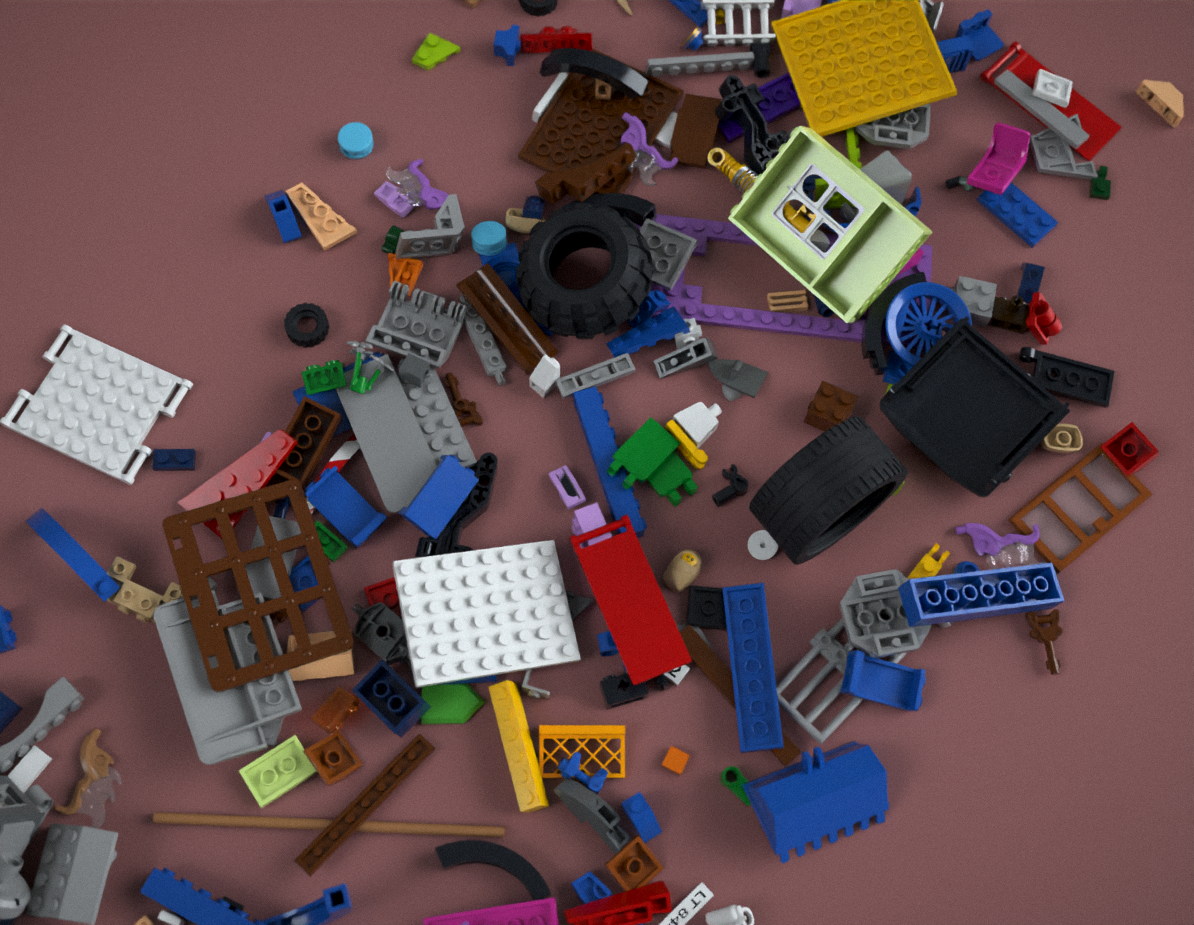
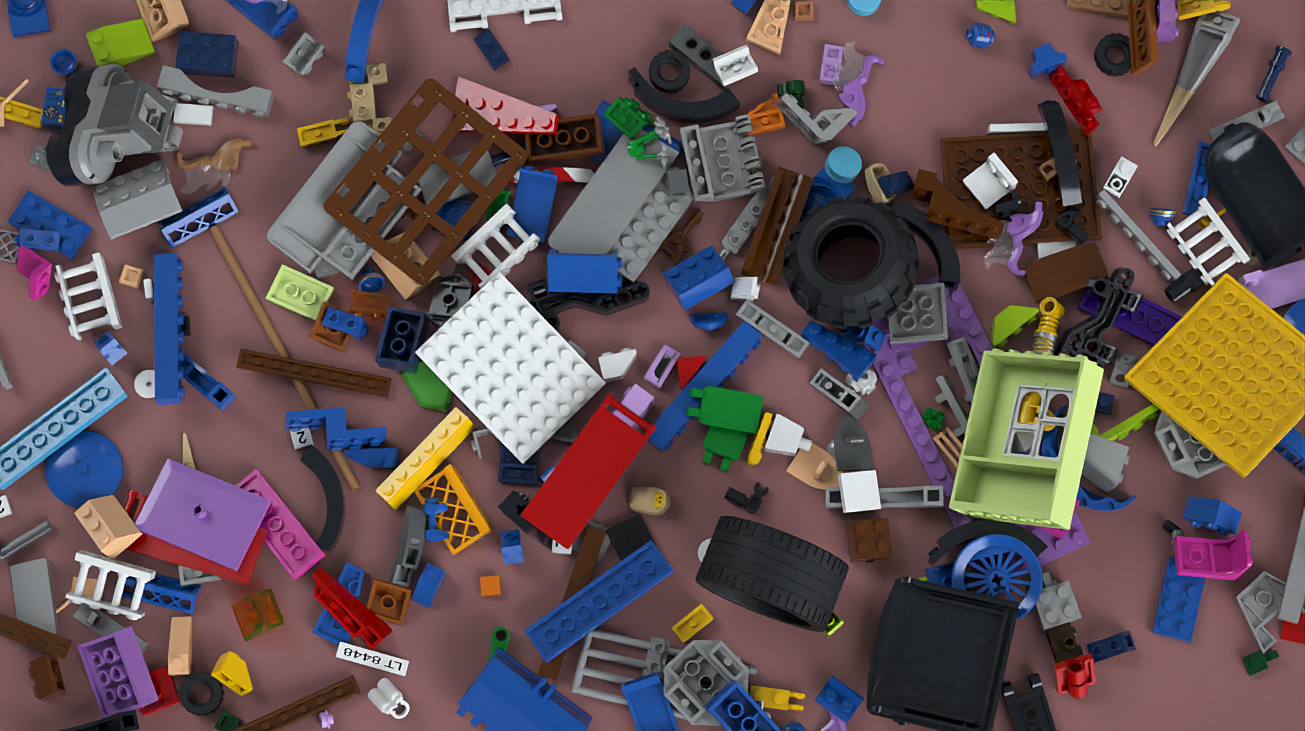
camera: 65 degrees right, 10 degrees up
(51, 628) = (303, 55): none -> light grey bracket
(126, 825) = (195, 211): none -> fence
(138, 656) = (321, 132): none -> yellow hinge
(313, 695) = (370, 281): none -> blue piece
(326, 292) = (706, 67): none -> dark grey brick
(332, 192) = (804, 10): none -> nougat tile
(338, 742) = (346, 323): none -> blue bracket
(343, 264) = (734, 65): none -> white bracket
(347, 574) = (491, 229): none -> white fence
(353, 330) = (682, 111): none -> black arch
(420, 855) = (302, 438): none -> white tile
(435, 813) = (335, 428): none -> blue bracket
(452, 77) = (980, 35): none -> blue head
(486, 795) = (378, 457): none -> blue piece
(509, 406) = (698, 277): none -> blue brick
(541, 524) = (616, 365): none -> white slope
(551, 425) = (709, 321): none -> blue plate
(580, 673) = (514, 471): none -> dark blue slope
(582, 135) = (990, 181): none -> white bracket
(585, 468) = (688, 369): none -> red slope
(613, 132) = (1005, 209): none -> black bracket
(641, 47) = (1120, 177): none -> white slope
(652, 716) = (511, 546): none -> blue brick
(654, 105) = (1064, 222): none -> black bar
(710, 197) = (1010, 323): none -> lime slope
(735, 248) = (965, 366): none -> light grey hinge
(740, 417) = (815, 468): none -> light nougat shield
(742, 275) = (954, 402): none -> light grey hinge
(754, 299) = (933, 418): none -> green plant
(786, 388) = (859, 491): none -> white tile
(801, 374) = (896, 497): none -> light grey arch
(817, 599) = (692, 623): none -> yellow plate
(957, 515) = (839, 699): none -> blue bracket
(963, 142) = (1212, 514): none -> blue brick

